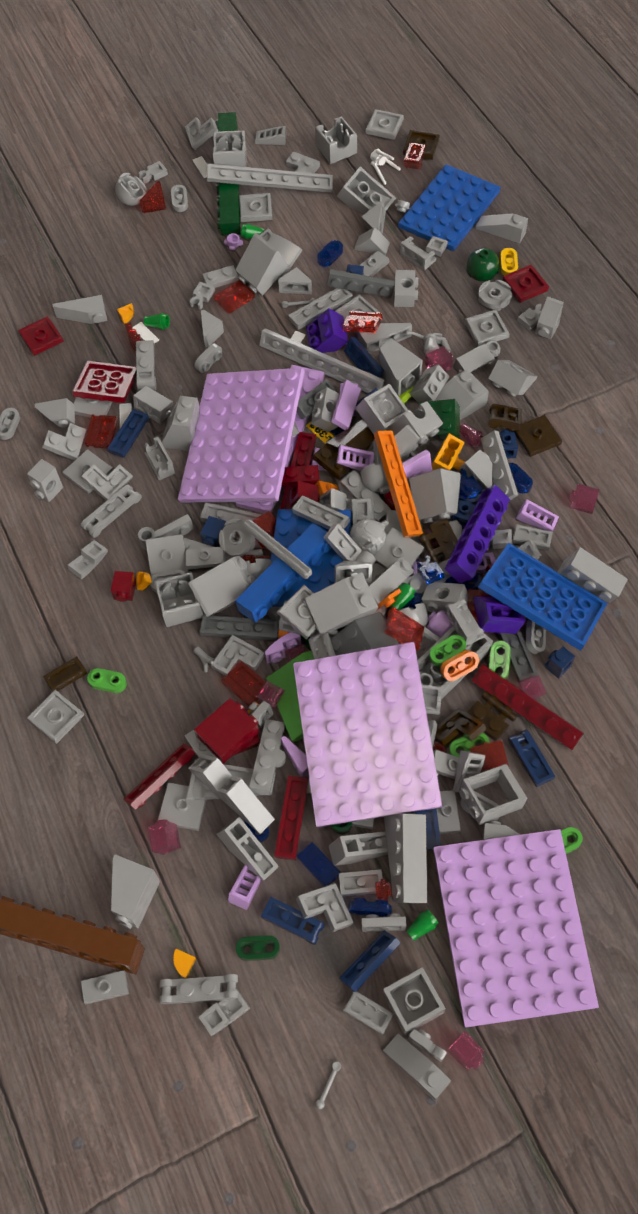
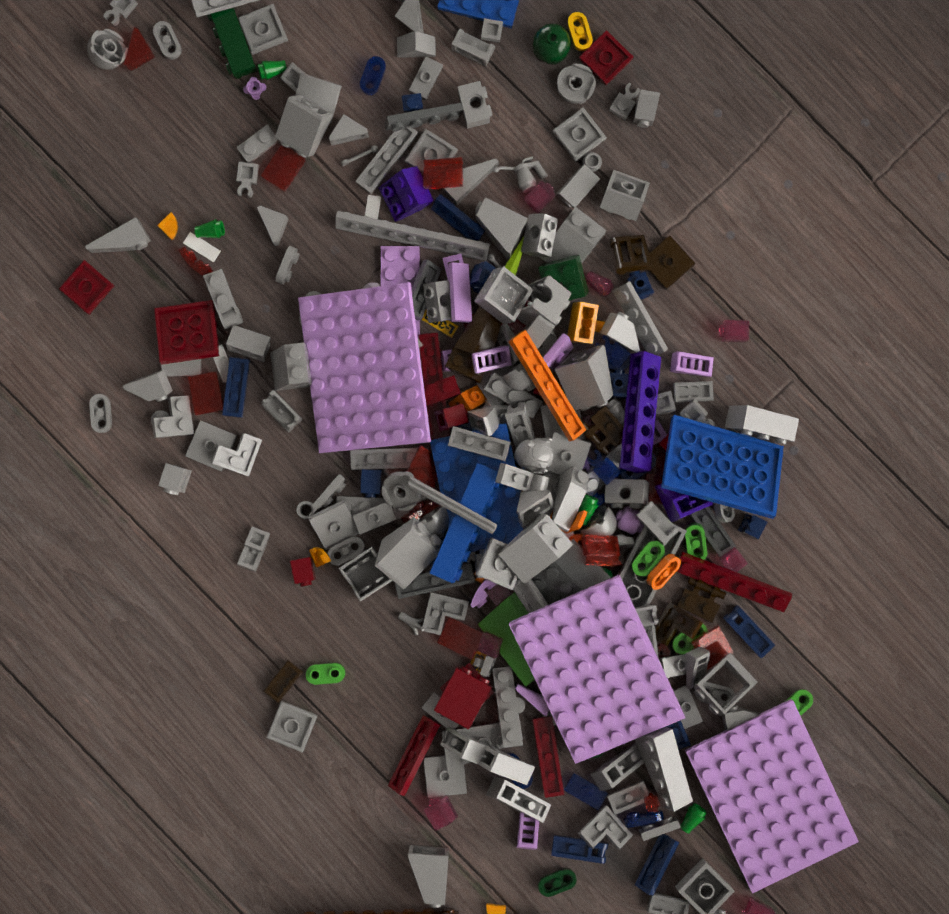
camera: 20 degrees left, 25 degrees up
(110, 510) = (255, 486): light grey plate -> none
(521, 478) = (662, 322): clear blue plate -> none

